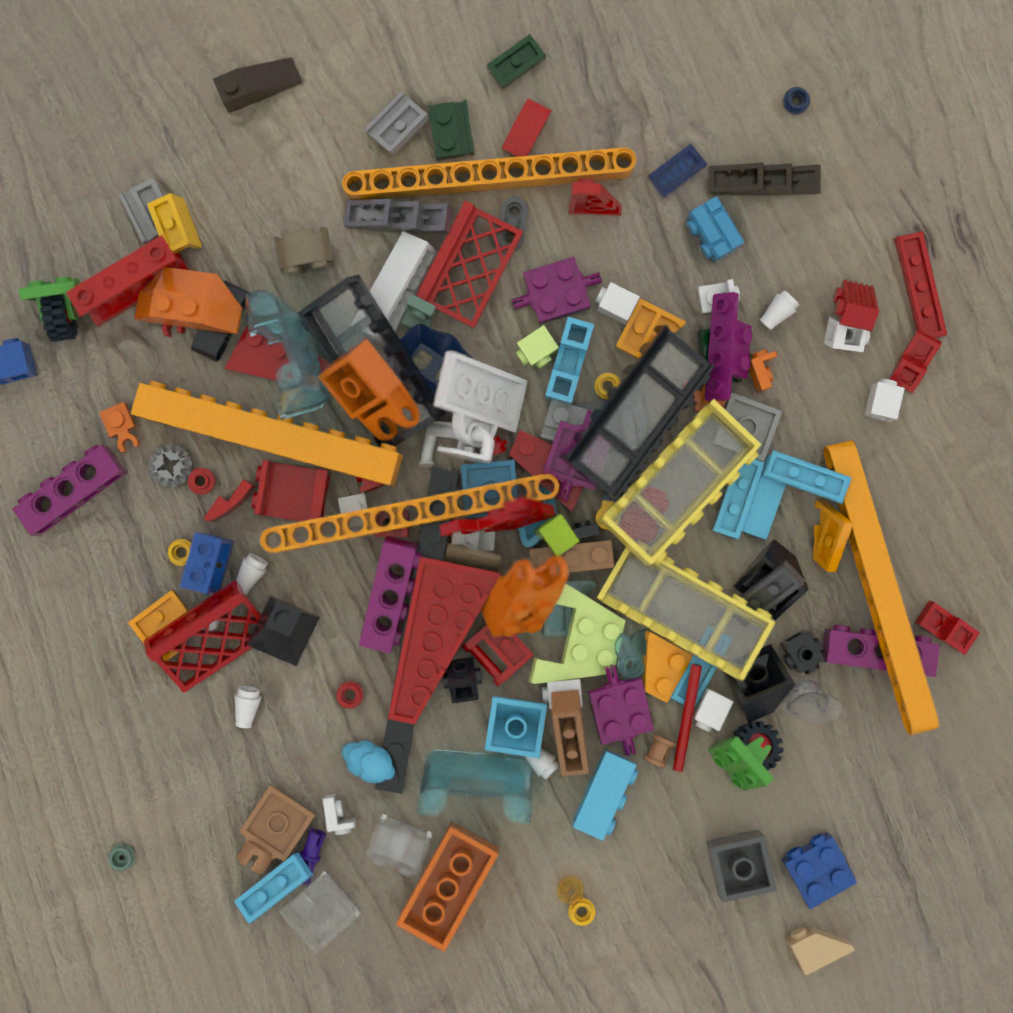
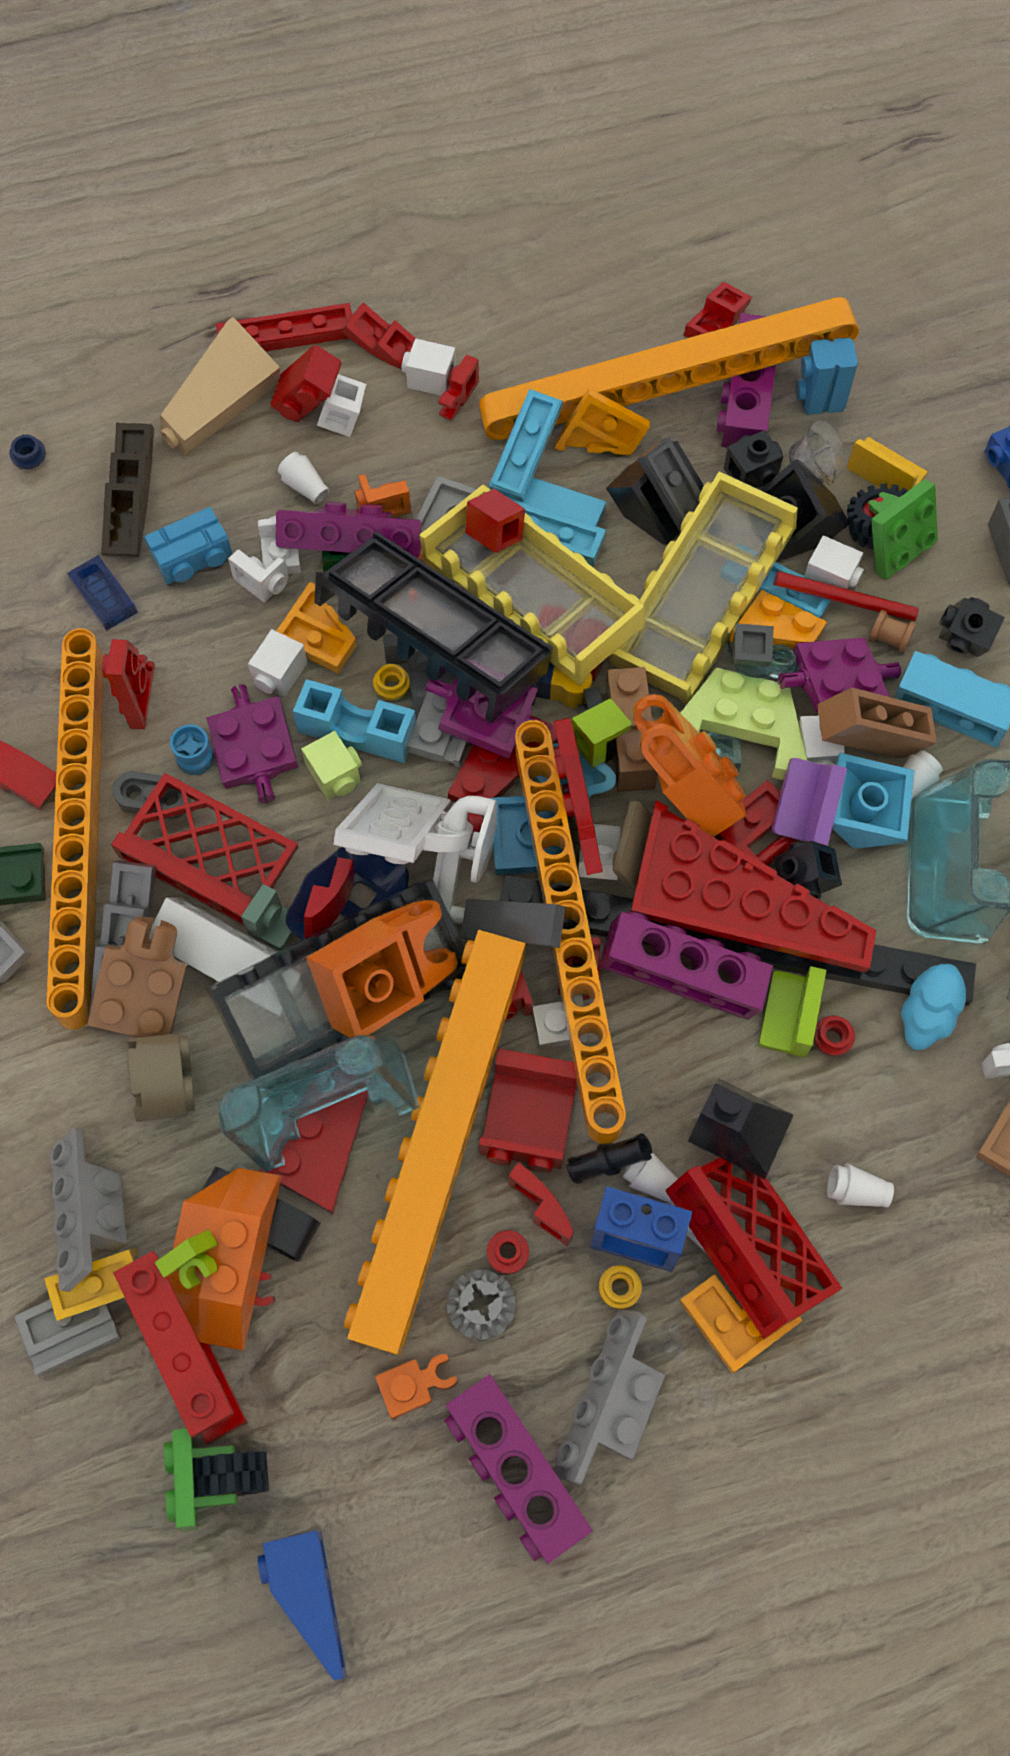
camera: 85 degrees left, 20 degrees down
(110, 548) = (614, 1402): none -> light grey bracket
(171, 281) = (187, 1256): none -> lime tile
(217, 213) = (86, 1209): none -> light grey bracket
(257, 553) = (609, 1158): none -> black pin
(366, 667) = (792, 1011): none -> lime panel
(368, 231) = (139, 982): none -> medium nougat plate
(410, 476) = (522, 921): none -> dark grey tile
(423, 349) = (327, 903): none -> red slope
(511, 682) = (809, 801): none -> medium lavender panel
(547, 242) = (186, 743): none -> dark azure wheel
(635, 646) = (752, 645): none -> dark grey plate
(661, 807) = (970, 626): none -> black brick
(692, 279) = (256, 578): none -> white bracket
(727, 454) = (494, 520): none -> red brick
(805, 755) = (883, 466): none -> yellow panel
(859, 241) = (219, 388): none -> tan slope
(870, 425) = (462, 383): none -> red plate
(880, 710) = (827, 375): none -> dark azure brick

